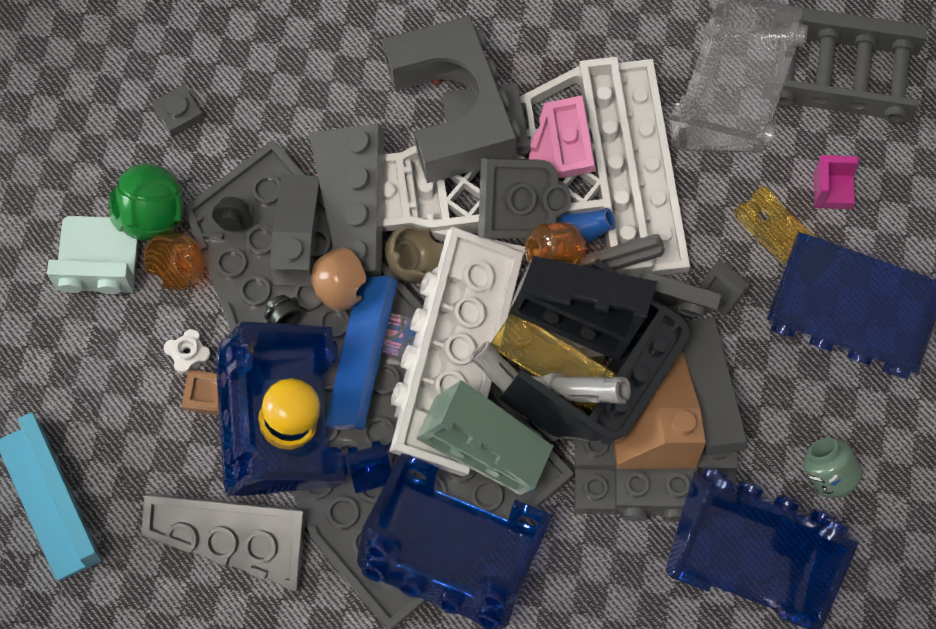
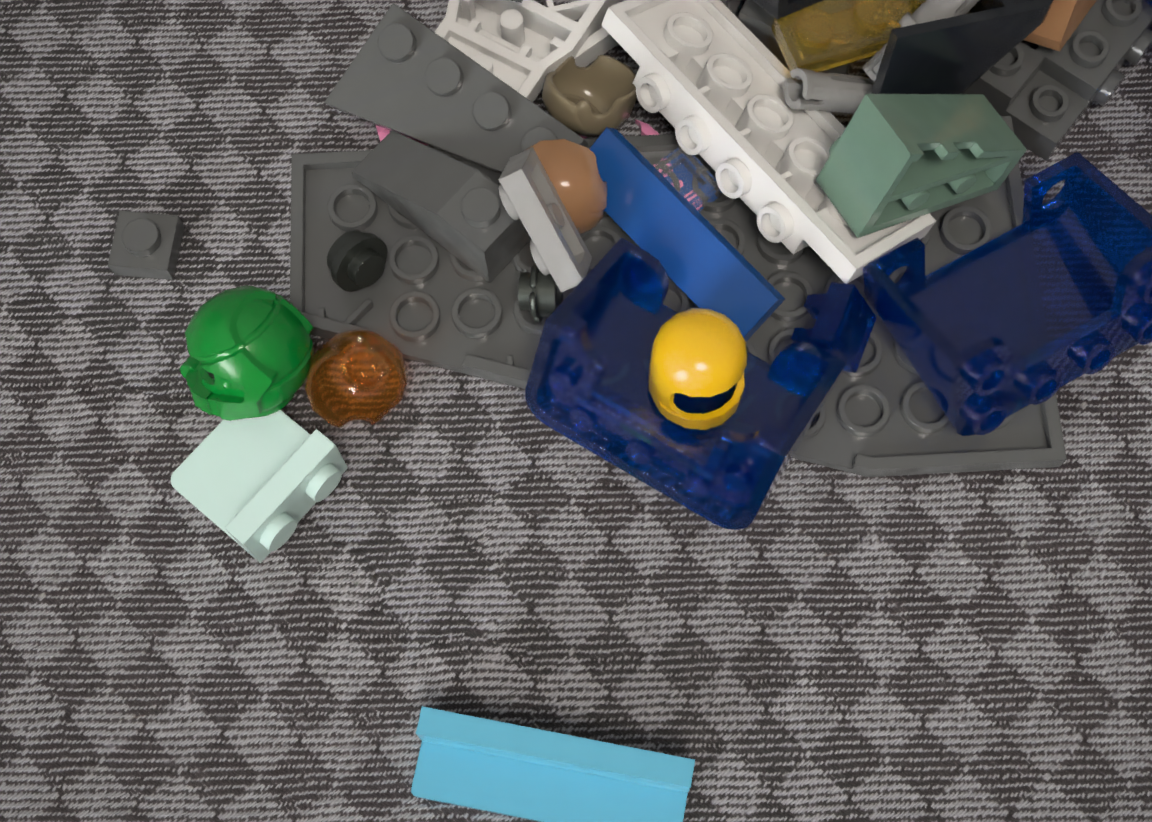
camera: 50 degrees left, 0 degrees up
(192, 360) = (497, 469): white plate -> none
(200, 393) = (560, 472): medium nougat tile -> none
(236, 534) = (804, 552): wing -> none
(304, 283) = (534, 200): none -> light grey plate

